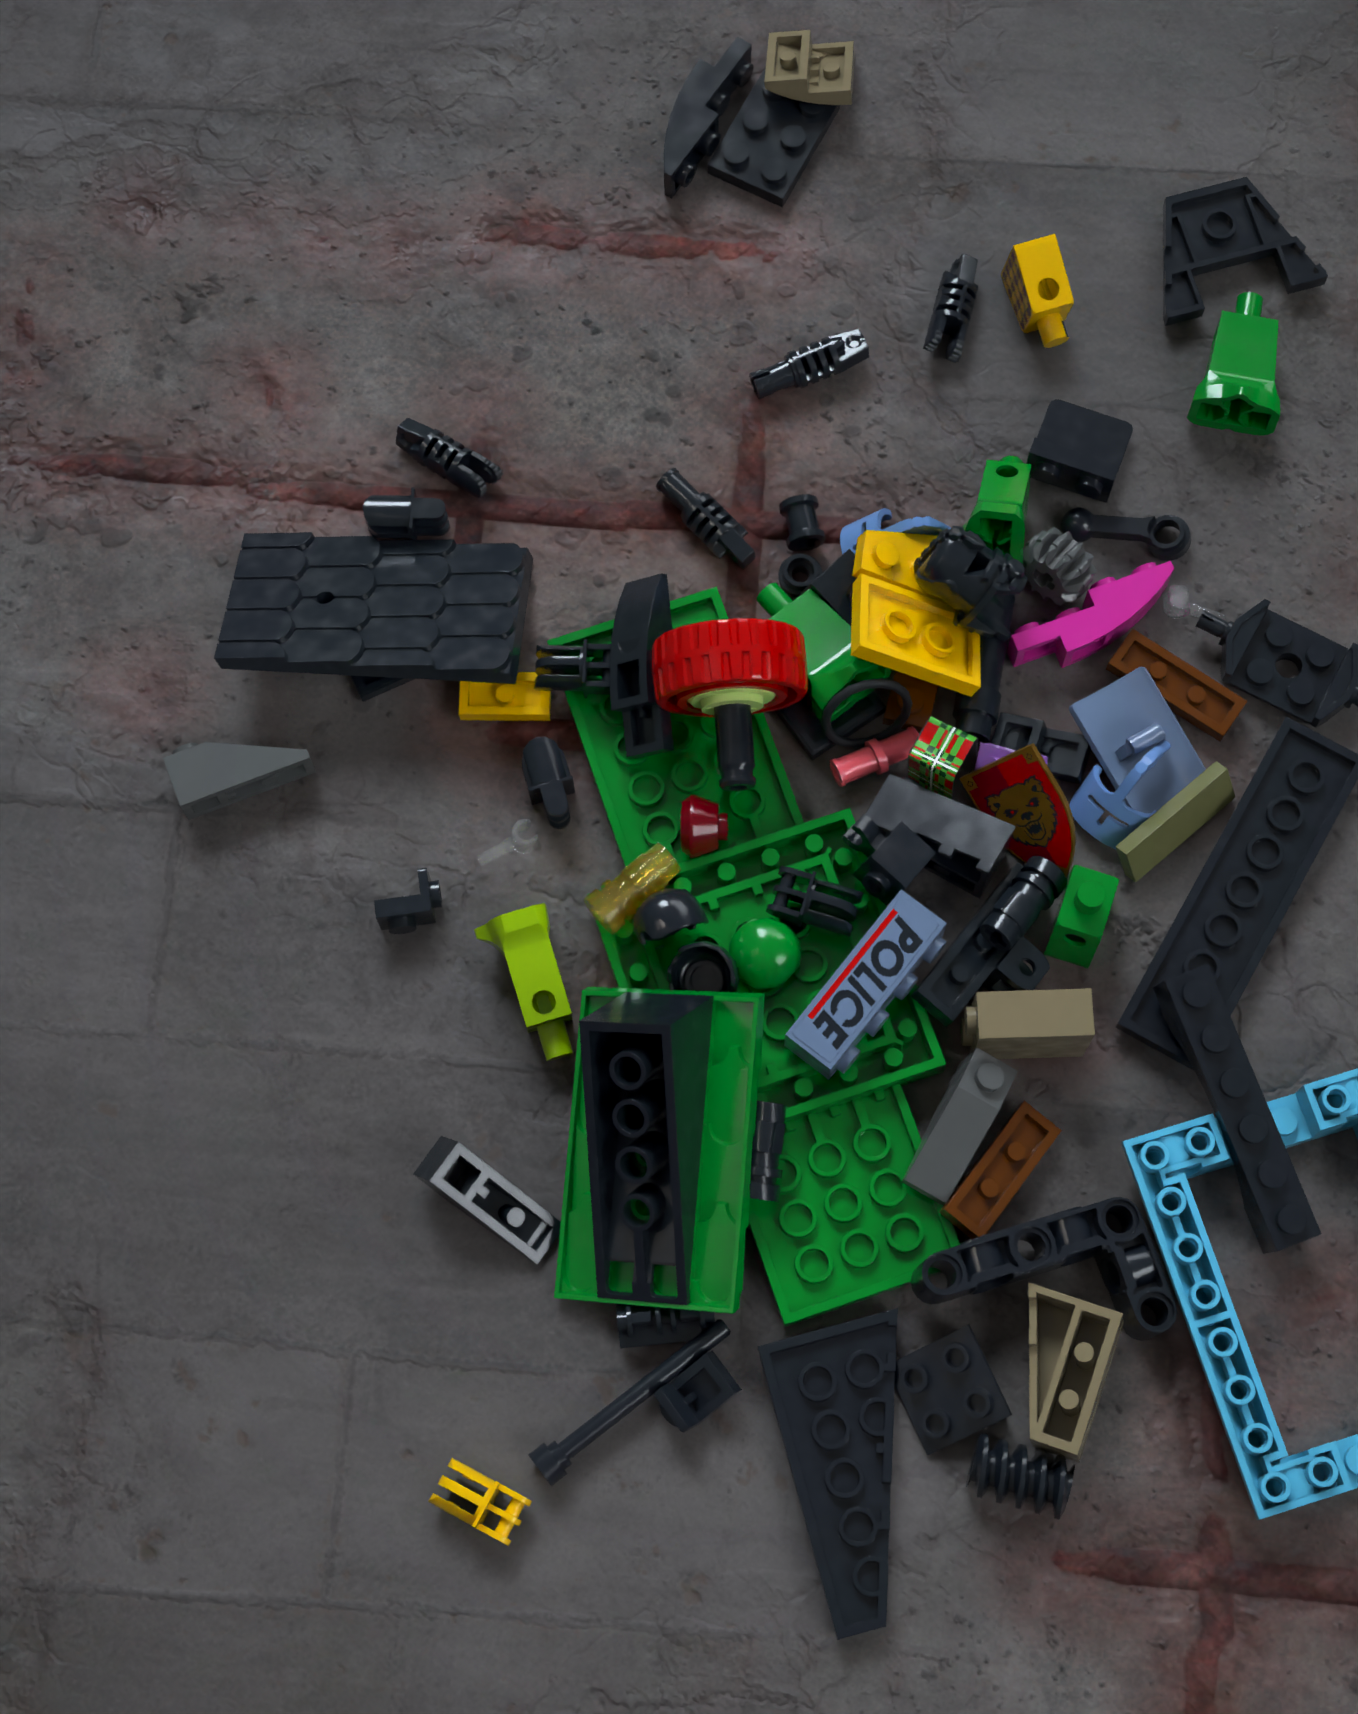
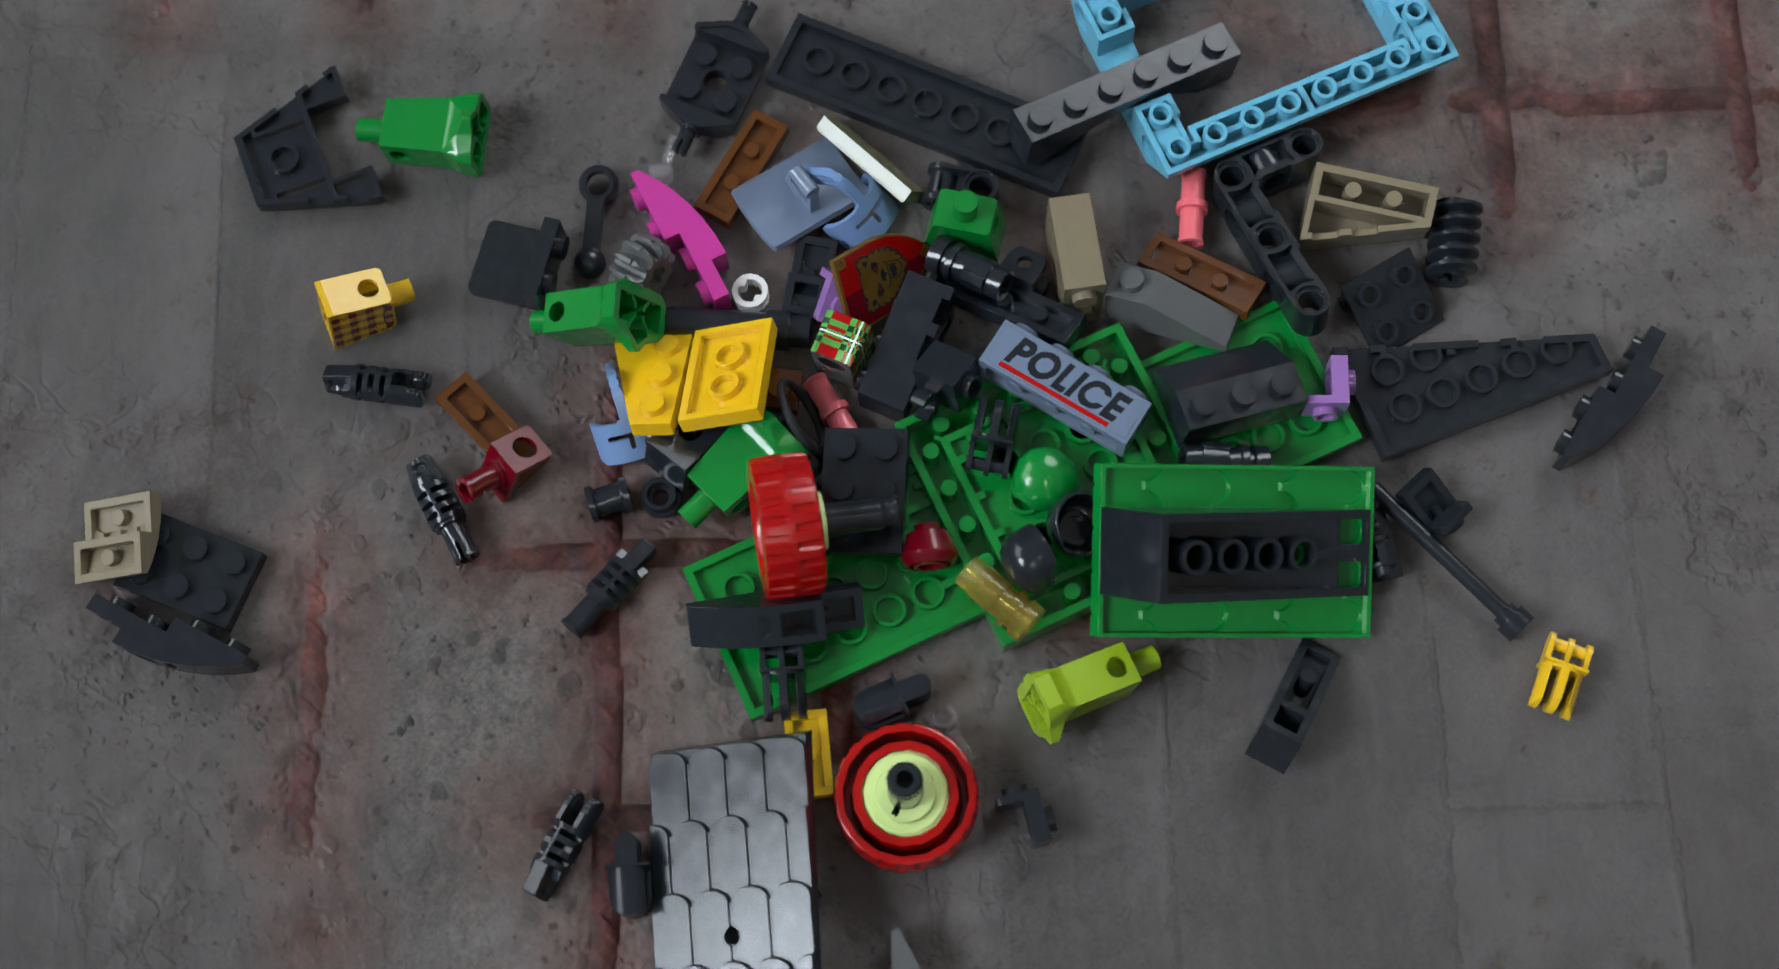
camera: 95 degrees left, 0 degrees up
(442, 782) = (905, 797): none -> red wheel
(780, 1617) = (1614, 406): none -> black slope
(795, 773) = (861, 466): none -> black plate
(844, 417) = (502, 466): none -> dark red bracket
(844, 1299) = (1339, 385): none -> medium lavender bracket
(849, 1168) = (1229, 392): none -> black slope
(892, 415) = (483, 418): none -> reddish brown plate
(967, 577) = (670, 344): black helmet -> none
(1013, 689) = (741, 285): none -> white bush
(1088, 1176) = (1192, 207): none -> coral pin
(1131, 912) = (957, 179): none -> black piece

